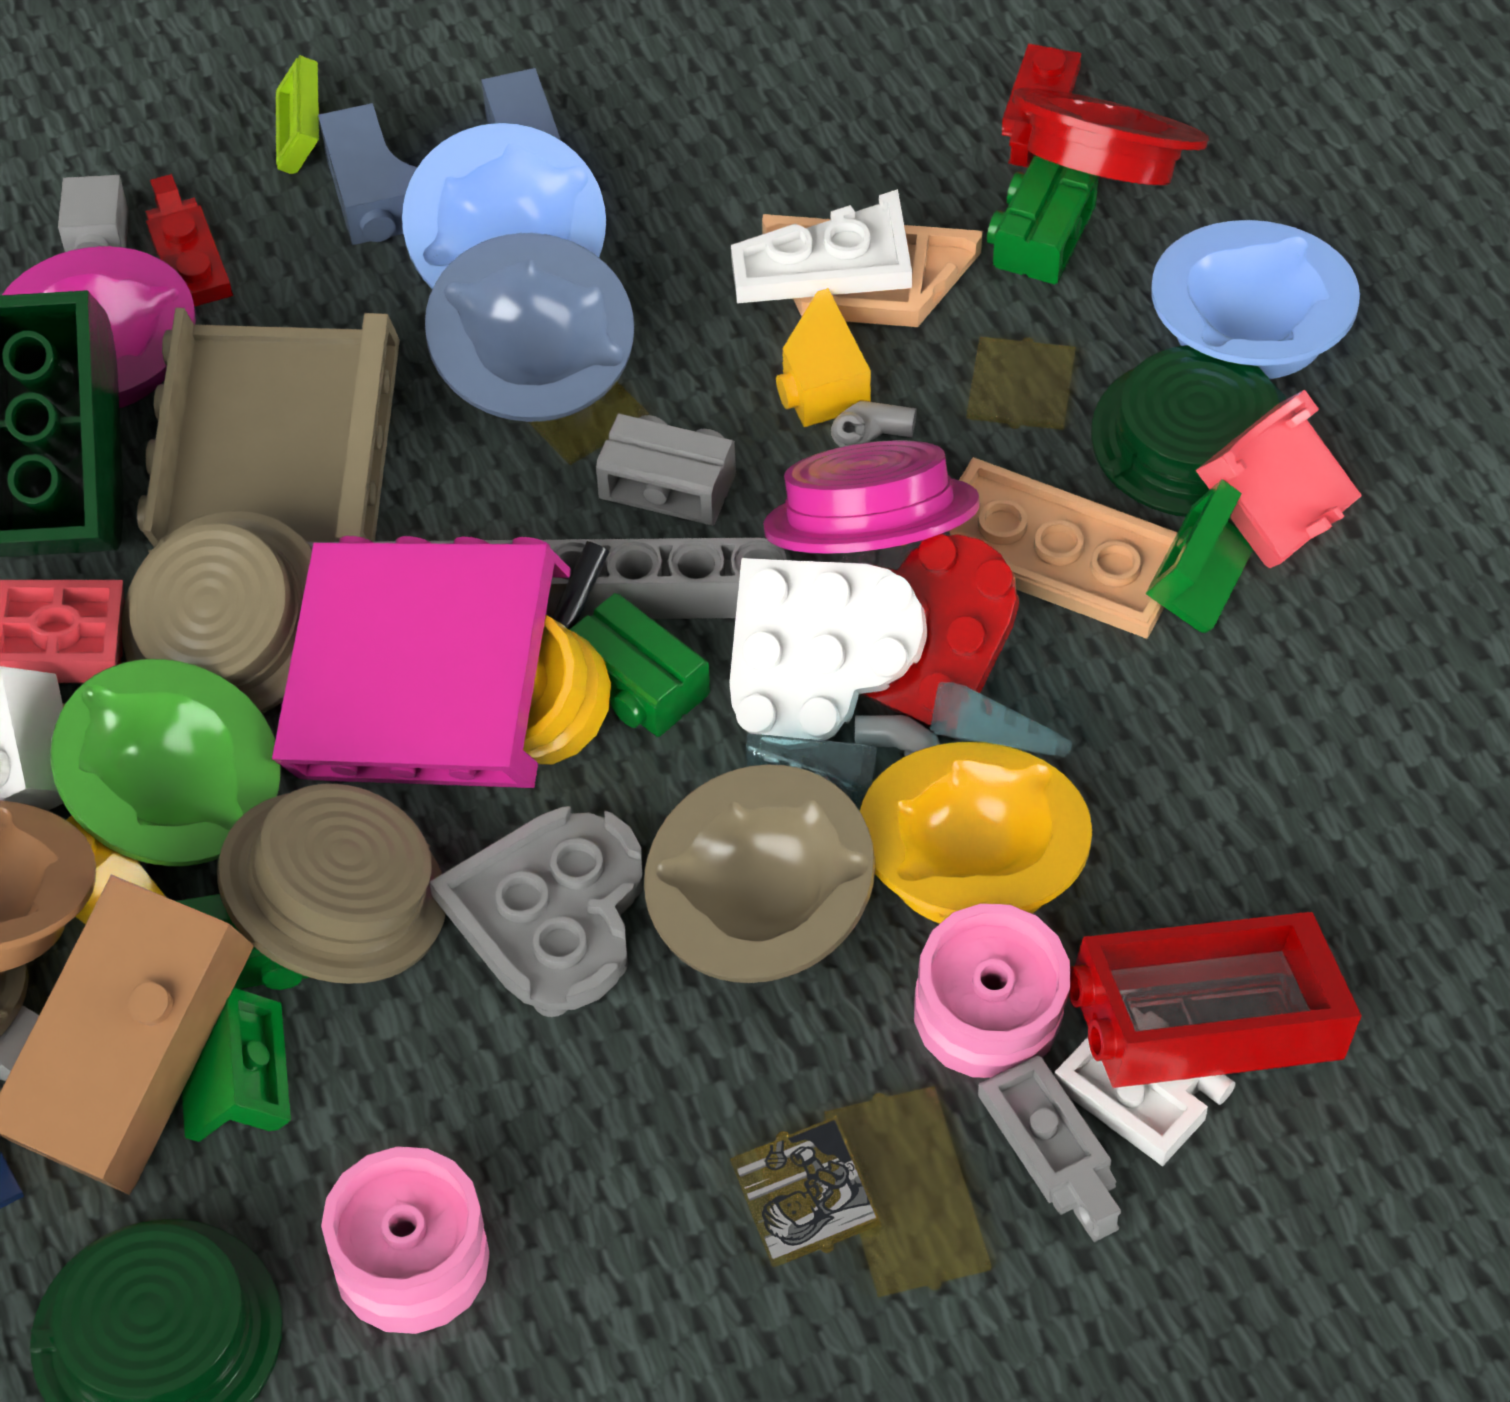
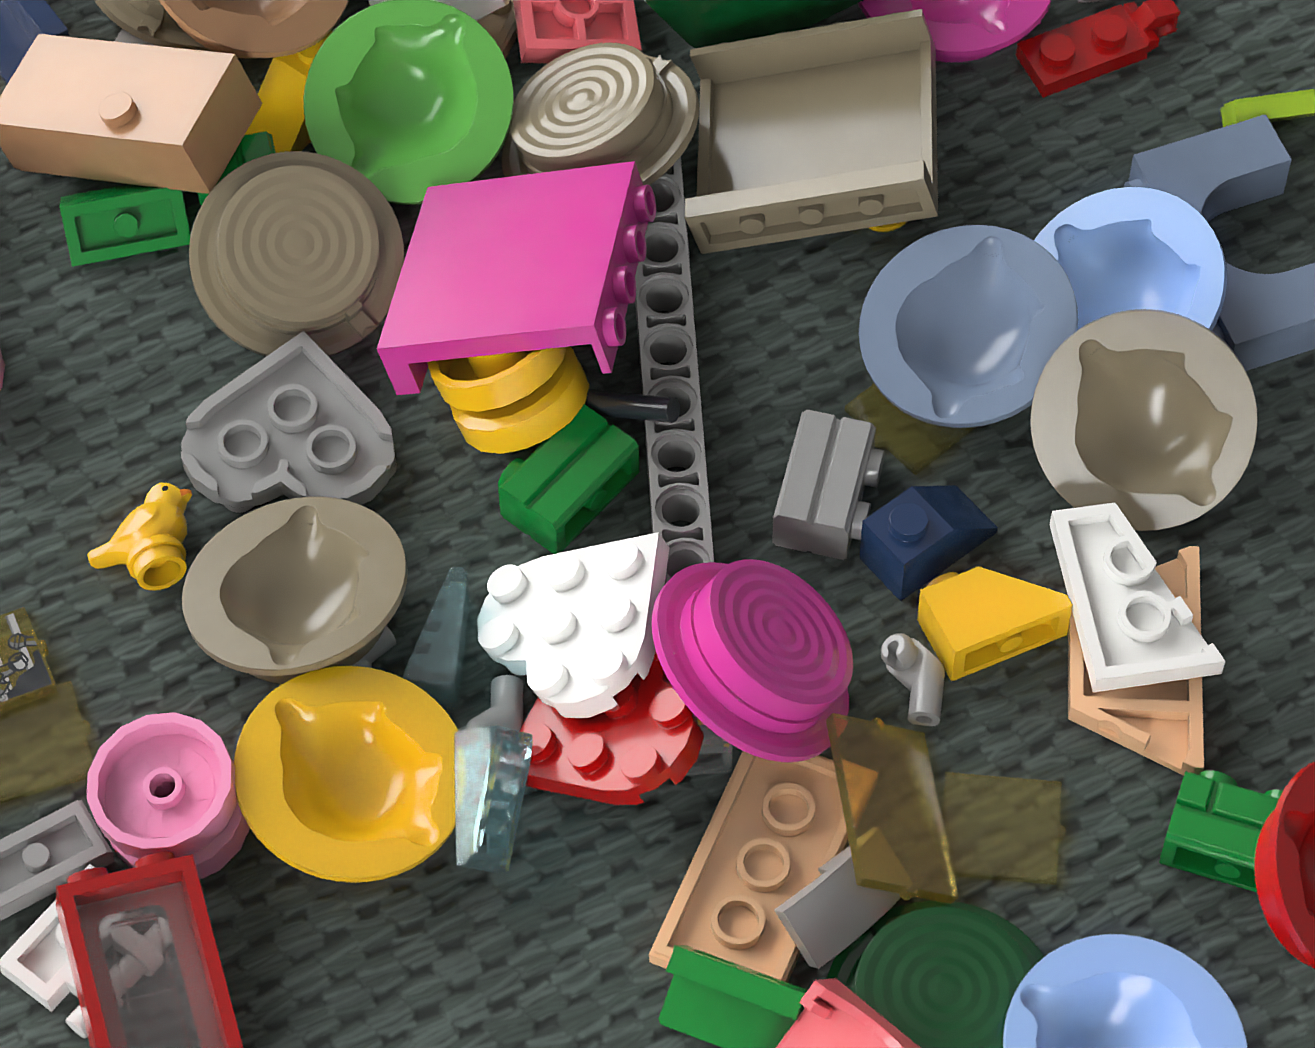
camera: 85 degrees right, 5 degrees up
(652, 210) = (1144, 417): none -> dark tan piece
(665, 1028) = (150, 540): none -> yellow animal
(734, 401) = (921, 536): none -> dark blue slope
(1021, 435) = (891, 809): none -> clear yellow piece
(1093, 470) = (832, 911): none -> light grey slope

